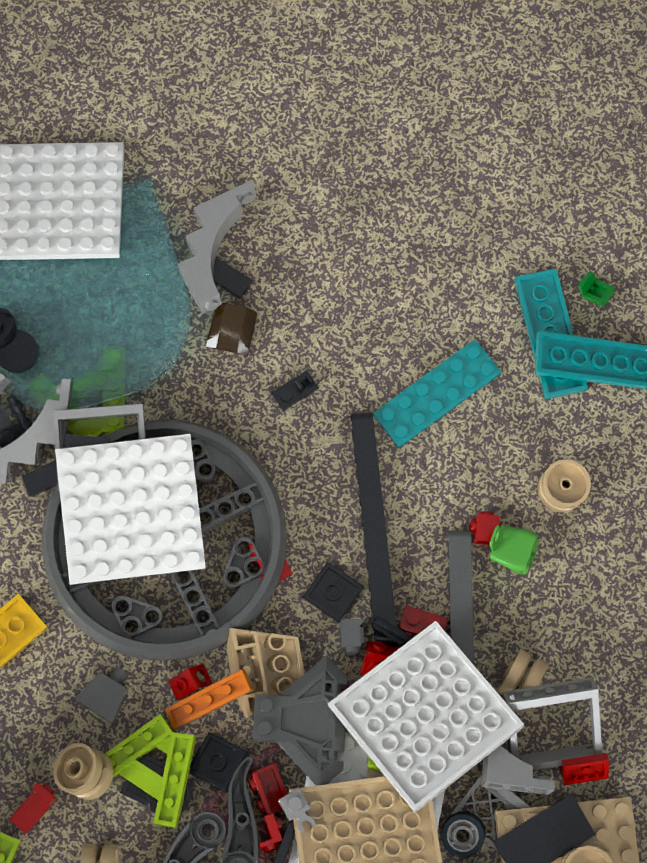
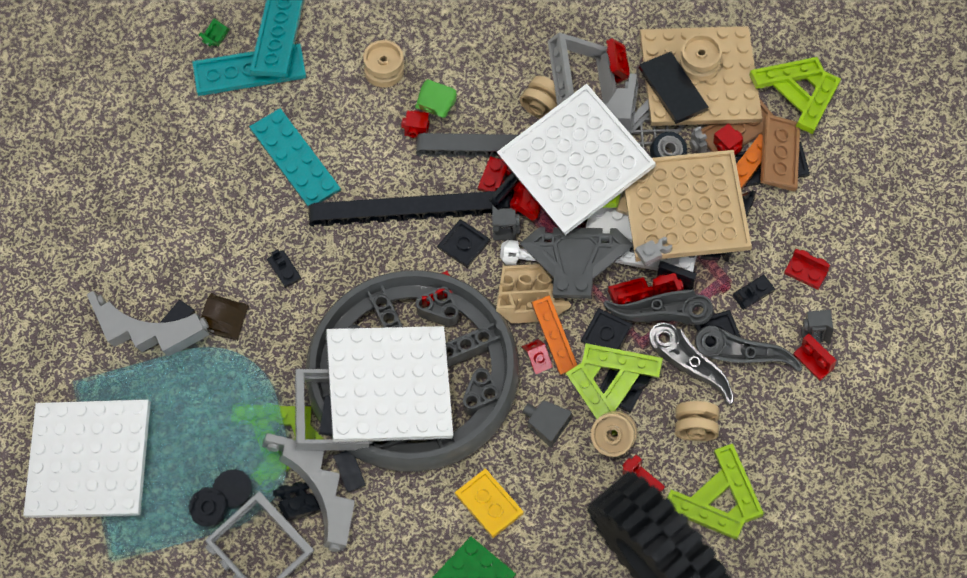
camera: 80 degrees left, 10 degrees down
(317, 647) = (511, 252): none -> white piece

